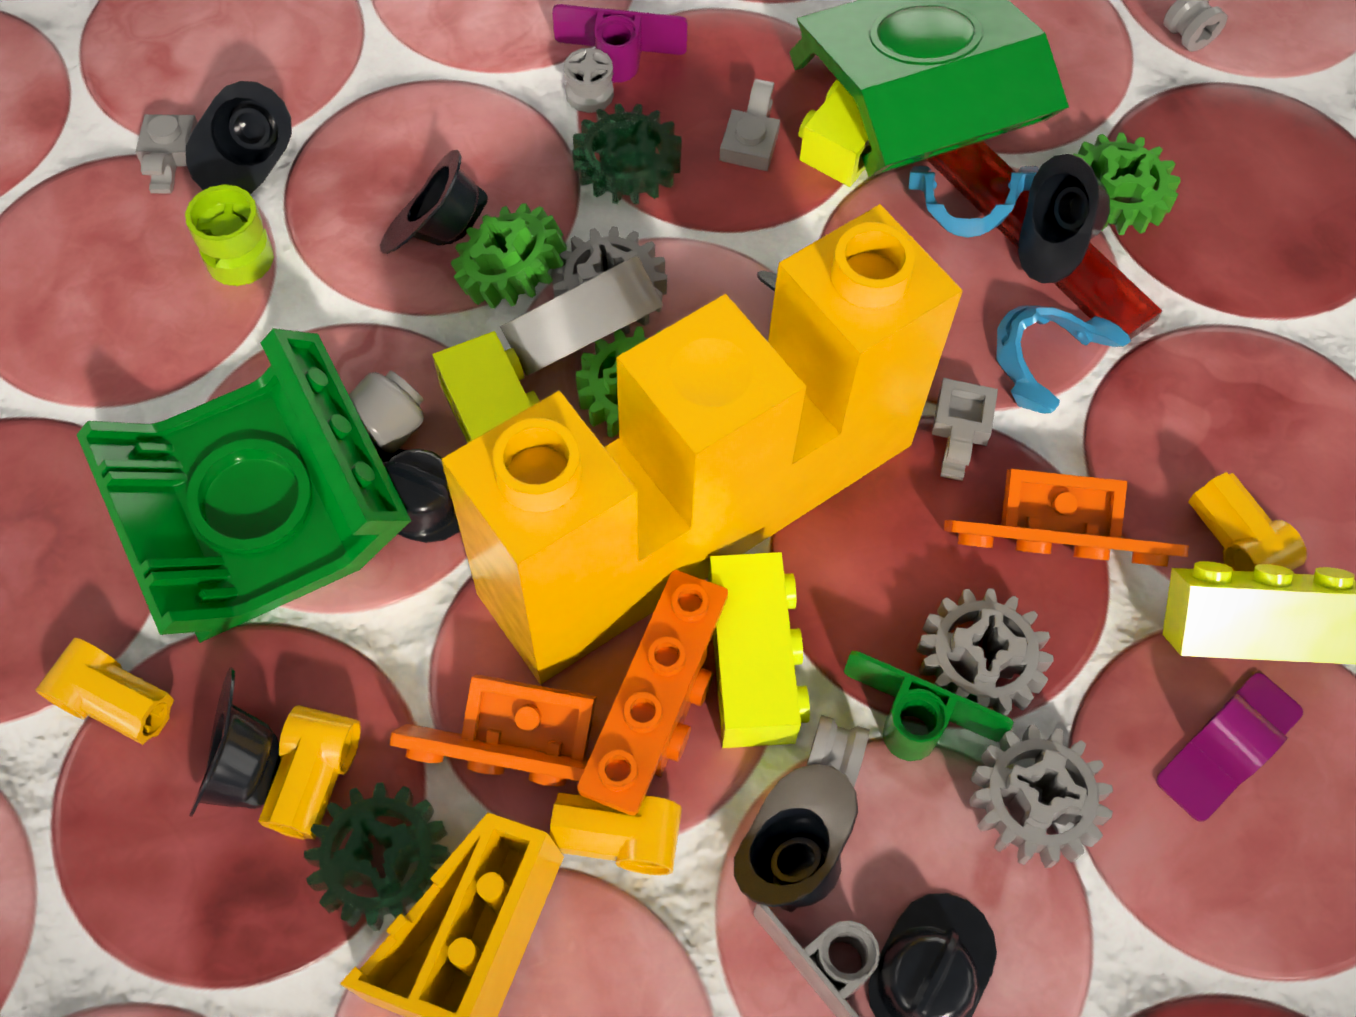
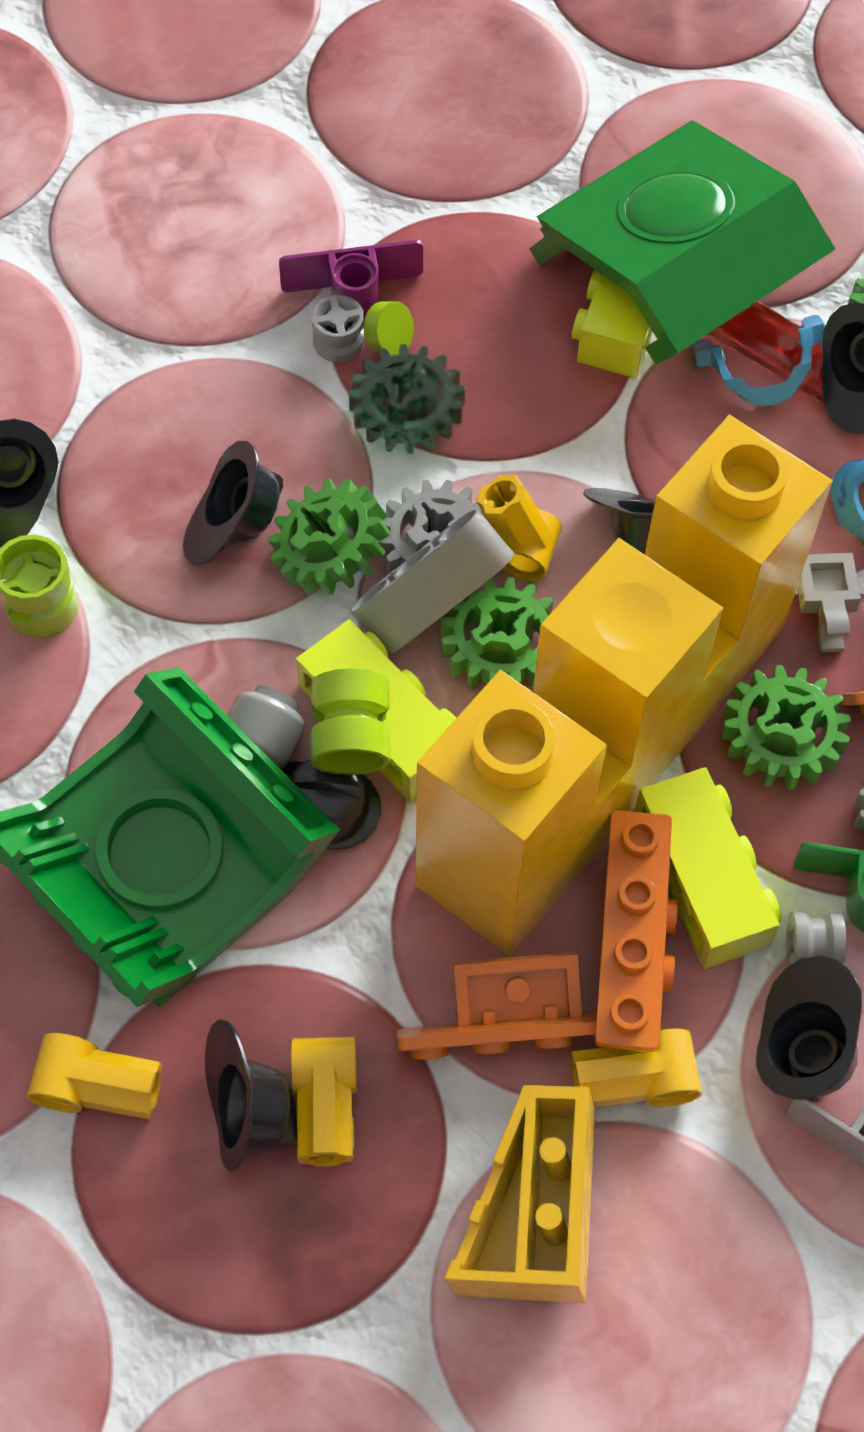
camera: 15 degrees left, 0 degrees up
(352, 863) = (439, 1179): clear green gear -> none
(451, 415) = (350, 720): none -> lime wheel
(634, 85) = (388, 326): none -> lime tile
(679, 277) = (522, 526): none -> yellow piece
(752, 134) = (522, 347): light grey plate -> none
(870, 544) = (785, 727): none -> bright green gear

